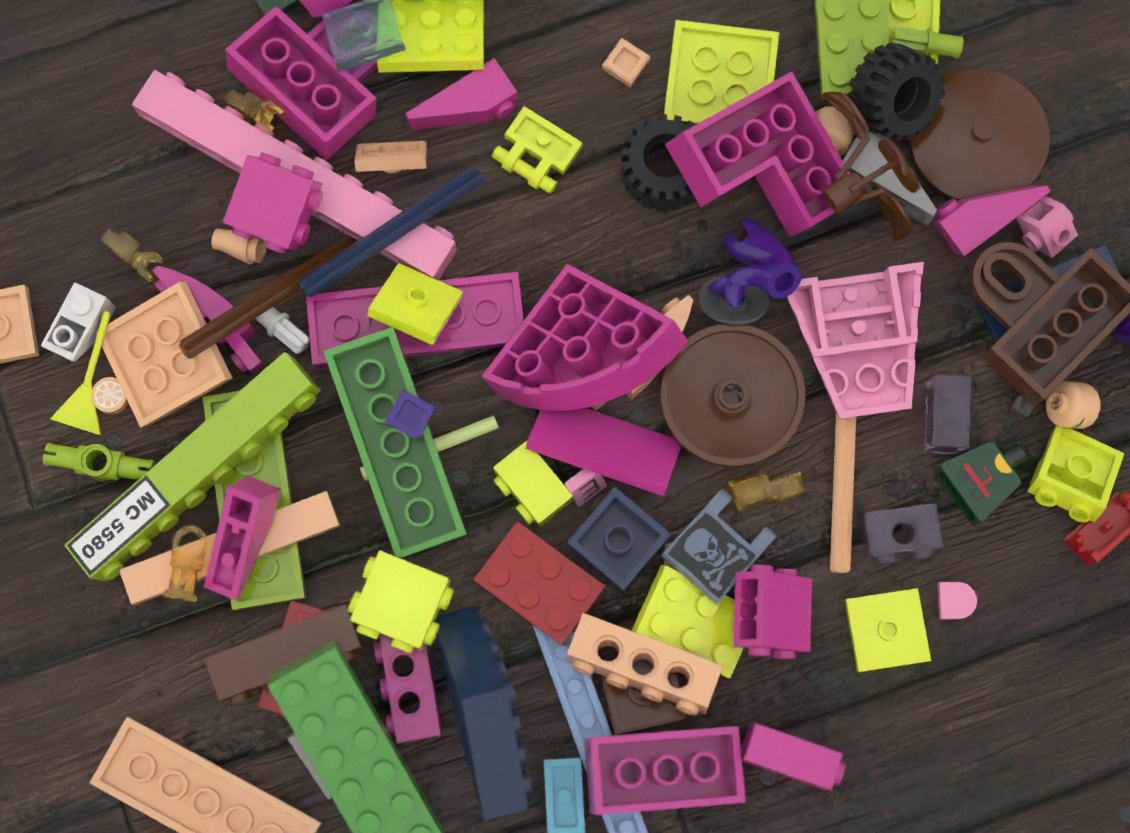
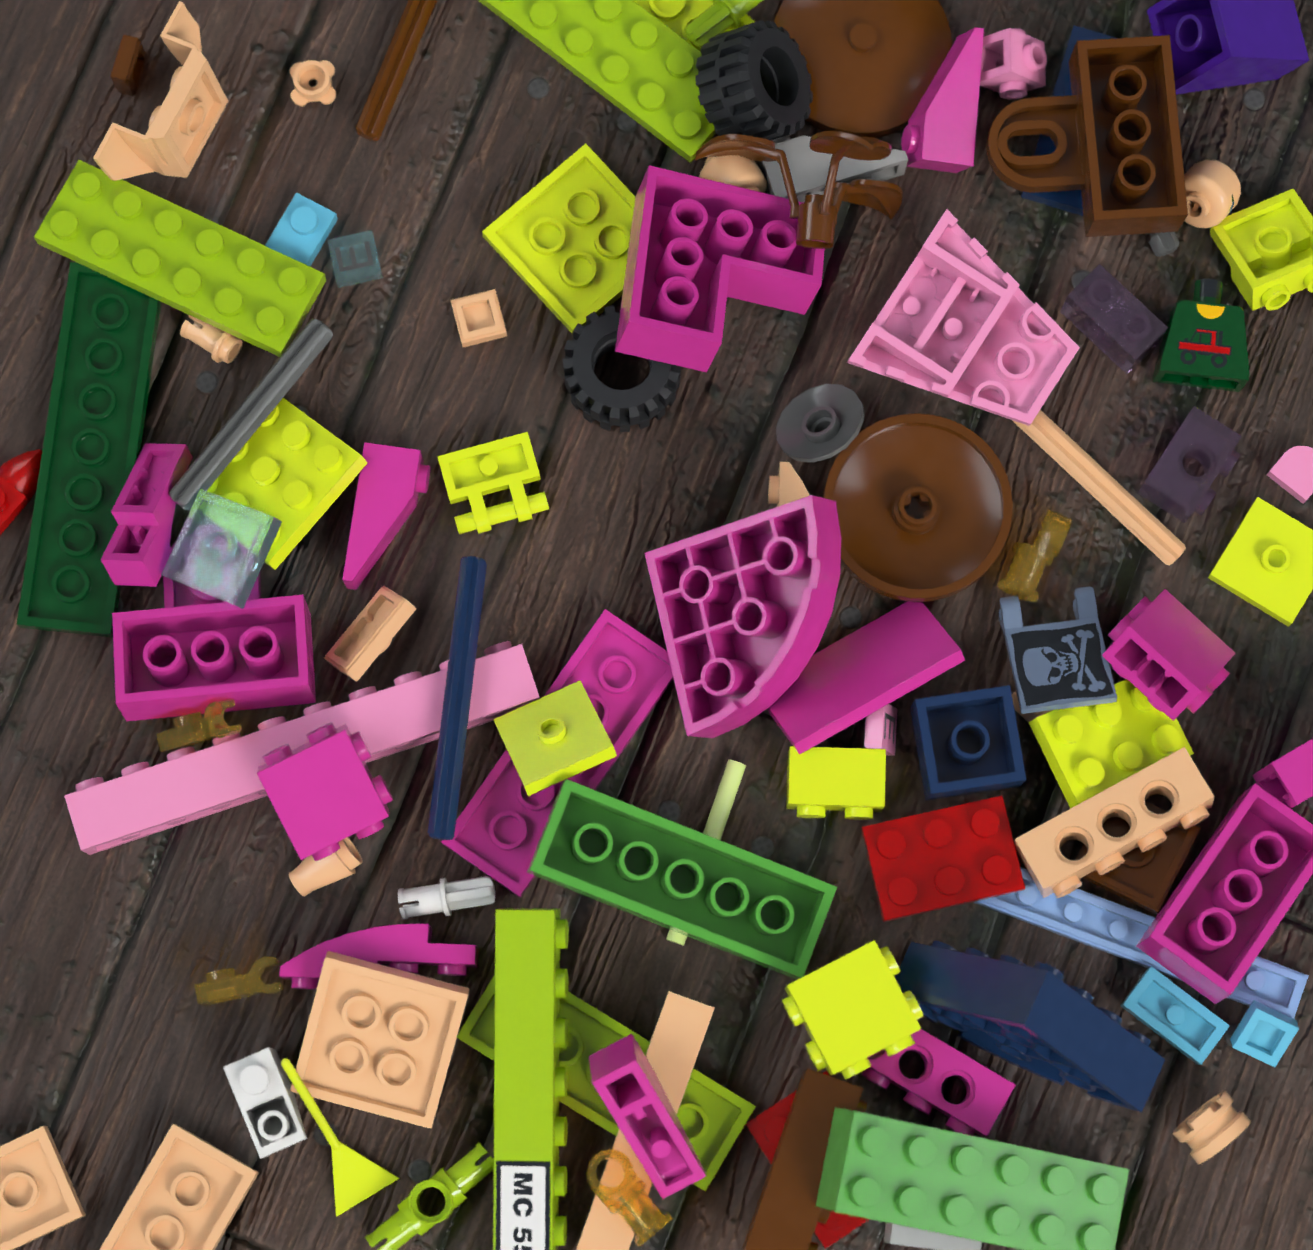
camera: 50 degrees left, 0 degrees up
(109, 396) = (367, 1133): light nougat tile -> none
(257, 303) = (415, 885): reddish brown axle -> none
(410, 414) = (674, 837): dark purple plate -> none
(770, 266) = (833, 354): dark purple piece -> none

